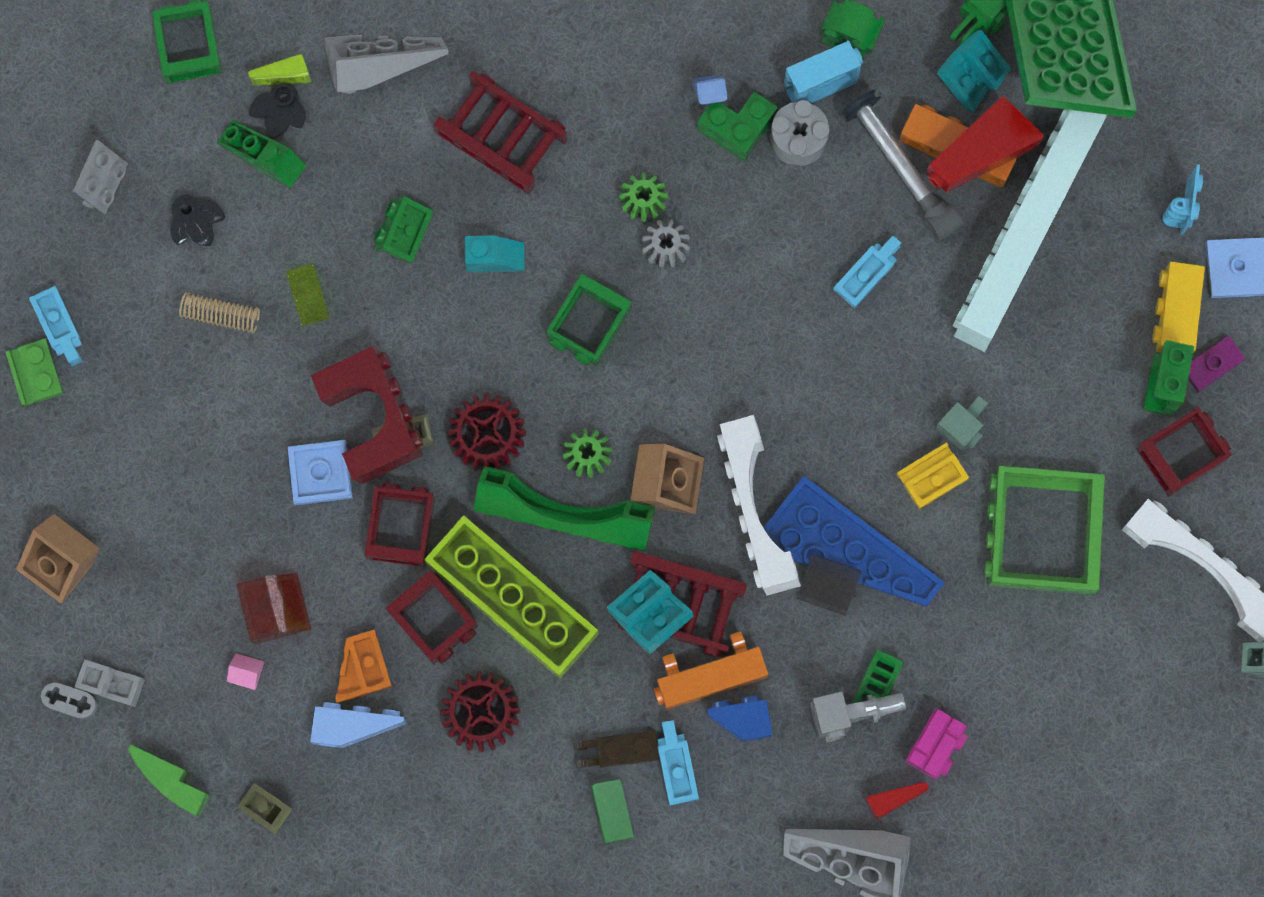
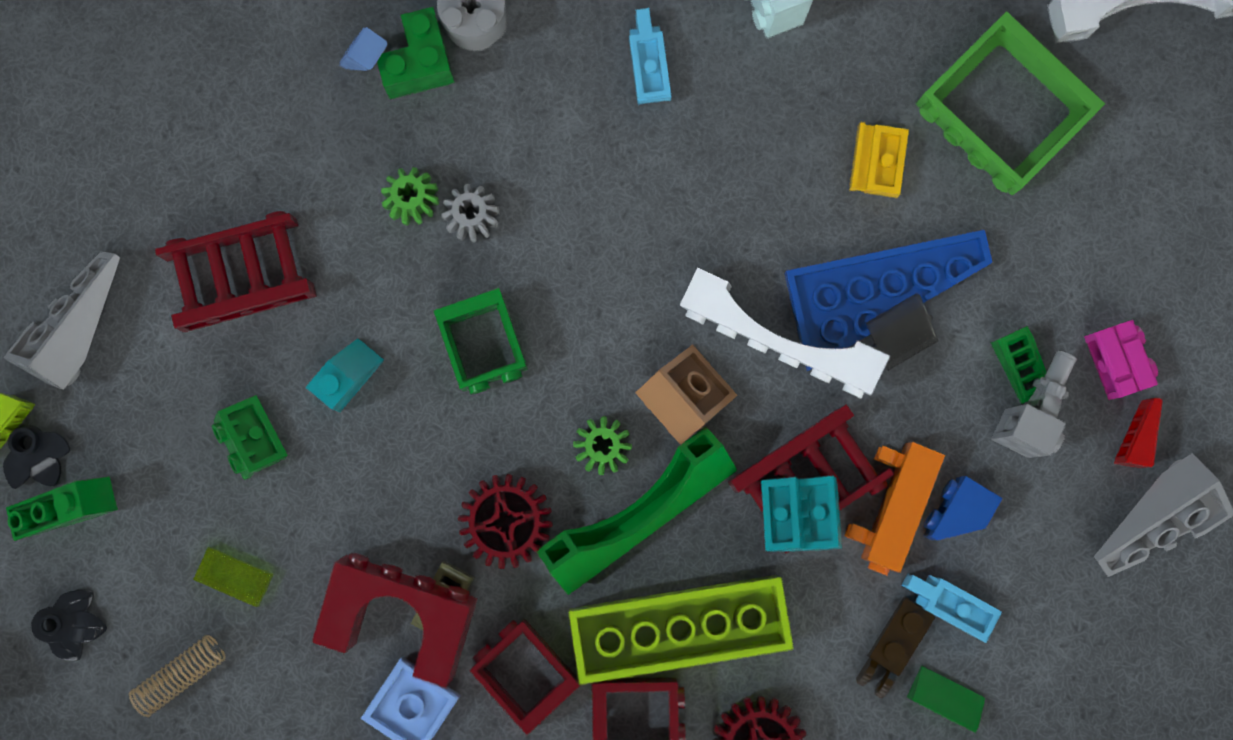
camera: 55 degrees left, 5 degrees up
(961, 424) = (855, 96): sand green brick -> none

